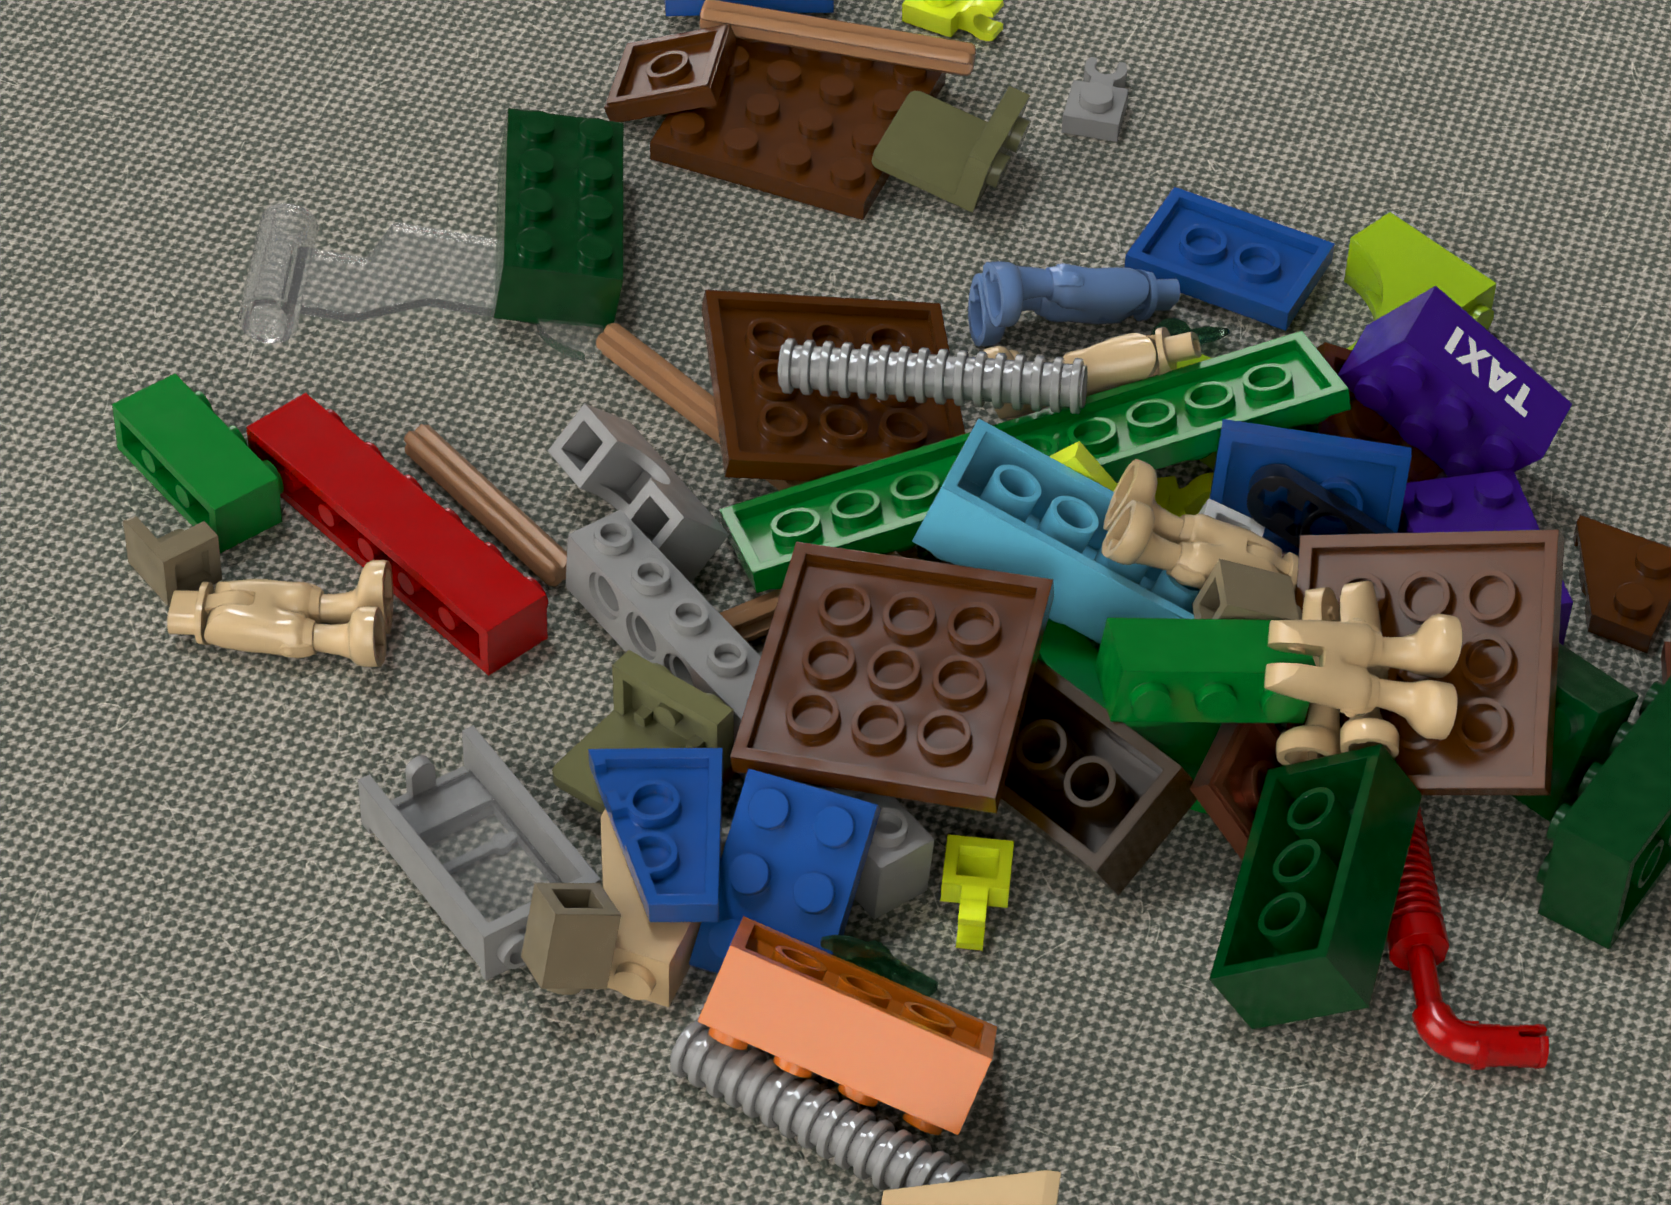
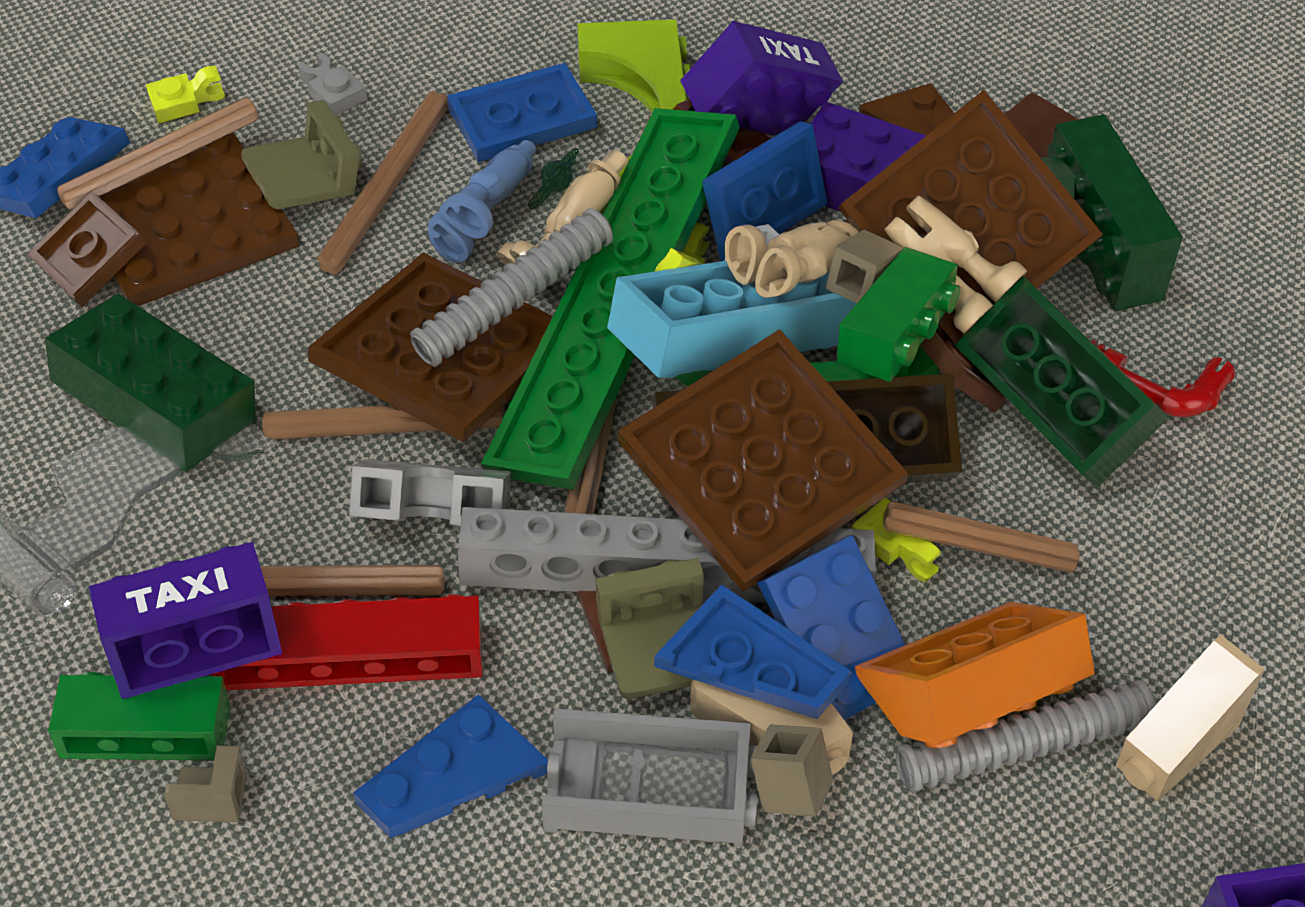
camera: 50 degrees left, 5 degrees up
(284, 396) = (185, 619): none -> dark purple brick
(291, 616) = (326, 760): tan piece -> none
(366, 709) = (457, 761): none -> blue wing
(879, 960) = (920, 626): clear green piece -> none
(1009, 221) = (382, 183): none -> medium nougat axle
(1042, 947) = (980, 537): none -> medium nougat axle
(1281, 516) = (783, 192): black beam -> none
(1343, 676) = (965, 237): tan piece -> none

